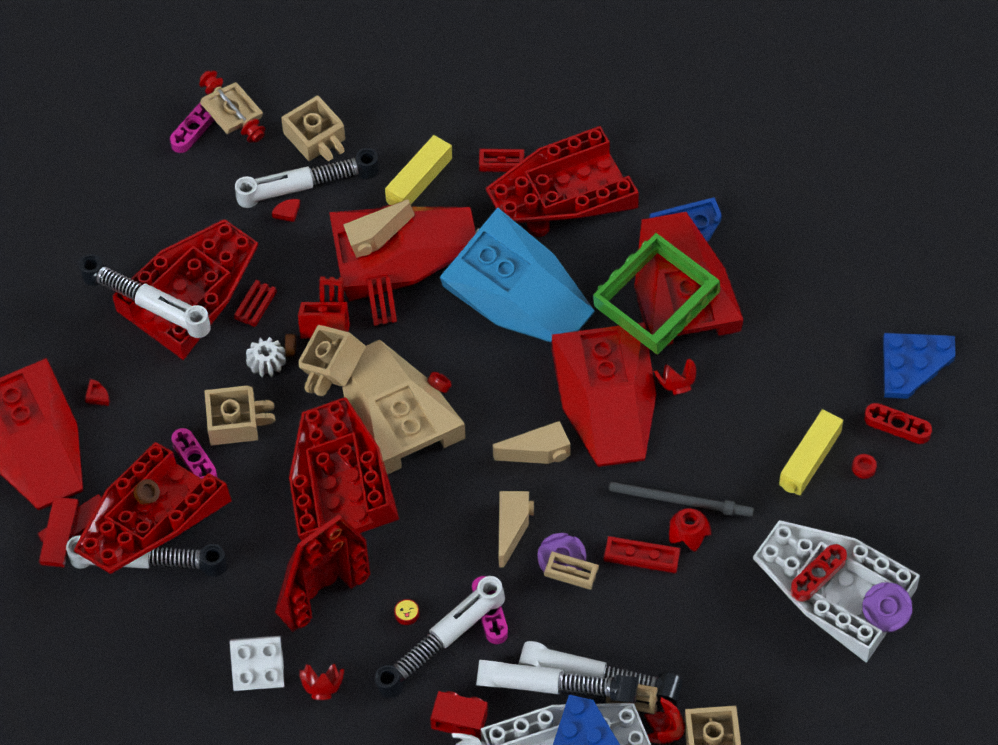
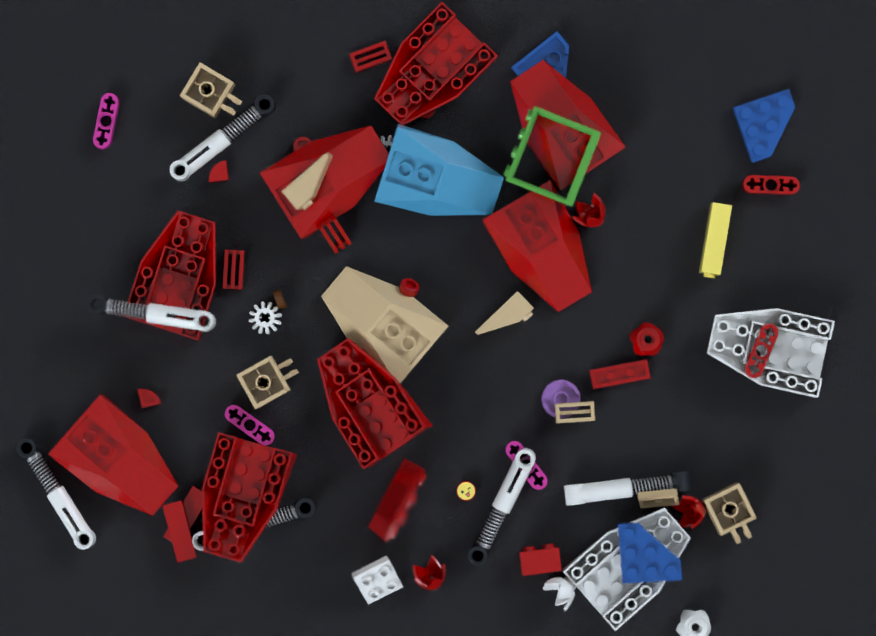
camera: 25 degrees left, 30 degrees up
(146, 492) = (233, 480): reddish brown tile -> none
(231, 107) = (130, 95): tan plate -> none
(322, 313) = (297, 269): red brick -> none
(329, 359) = (319, 305): tan hinge -> none
(332, 282) = (293, 242): red tile -> none
(419, 171) = (310, 99): light yellow brick -> none
(513, 521) = (514, 384): tan slope -> none
(555, 681) = (555, 519): piece -> none
(727, 507) = (668, 310): dark grey bar -> none
(864, 466) = (757, 232): red tile -> none
(887, 606) = (819, 356): medium lavender tile -> none

